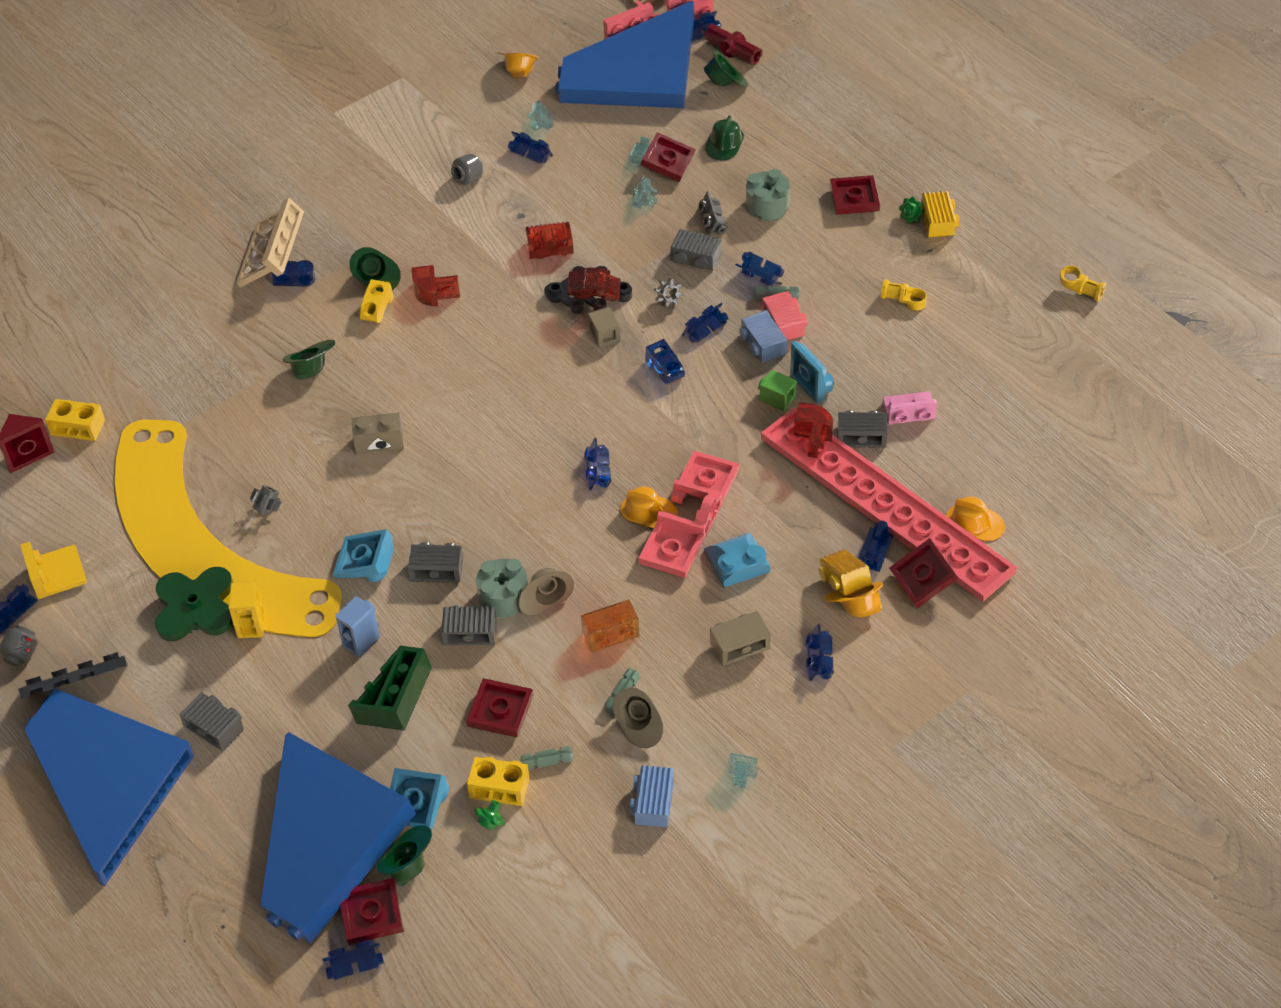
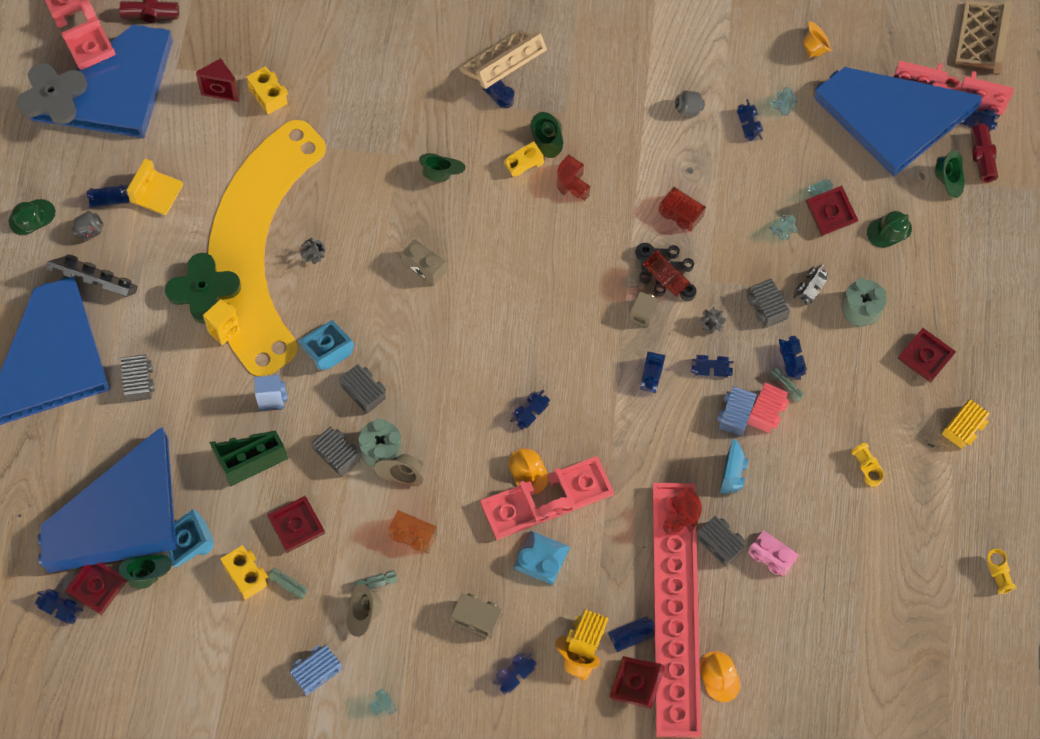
camera: 40 degrees right, 15 degrees up
(489, 816) = (216, 590): green plant -> none
(777, 390) = (700, 460): bright green brick -> none
(911, 210) = (951, 403): green plant -> none

